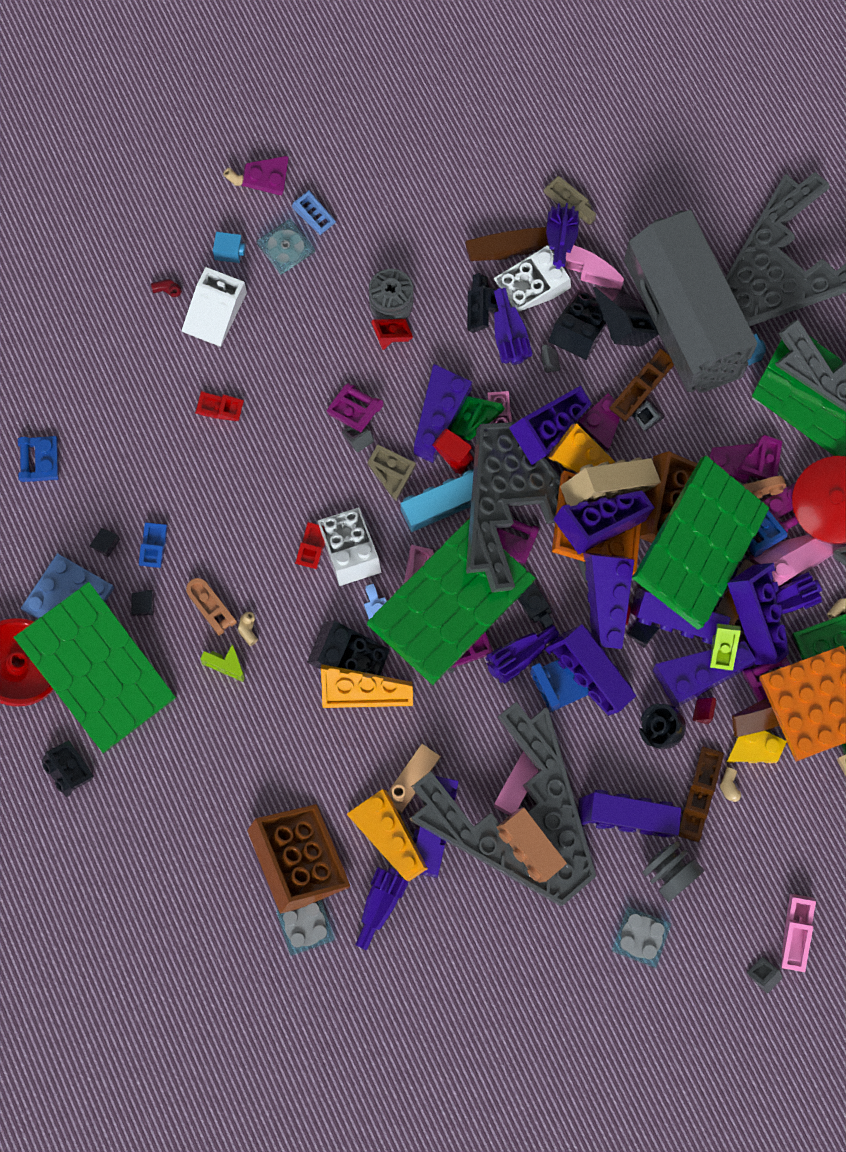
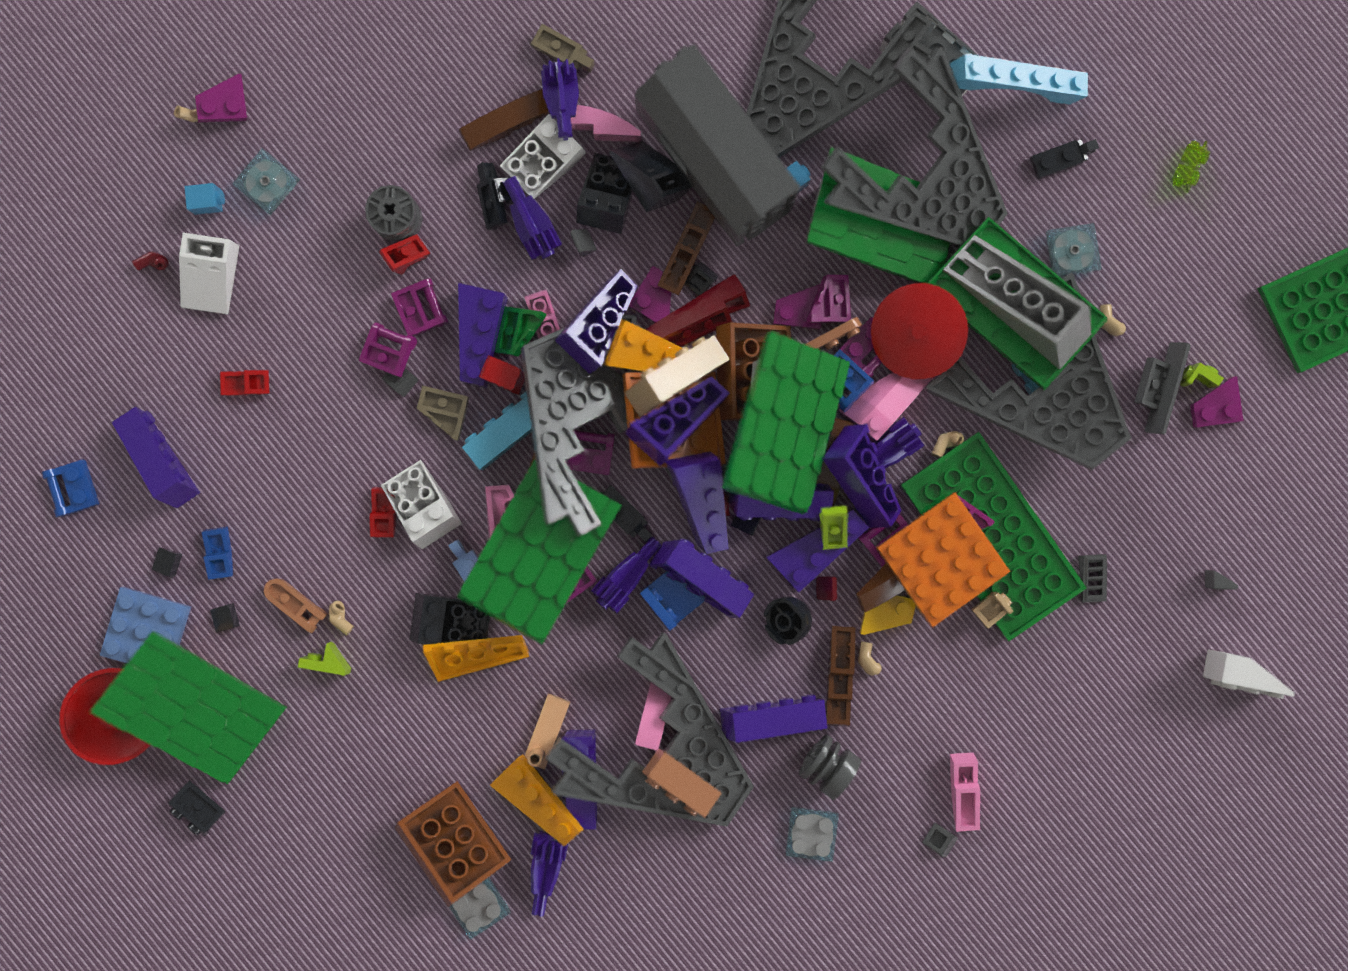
camera: 10 degrees left, 15 degrees up
(124, 449) = (154, 458): none -> dark purple wedge
(310, 198) = (269, 124): medium blue slope -> none
(384, 380) = (412, 311): none -> magenta plate
(647, 441) = (702, 313): none -> dark red wedge

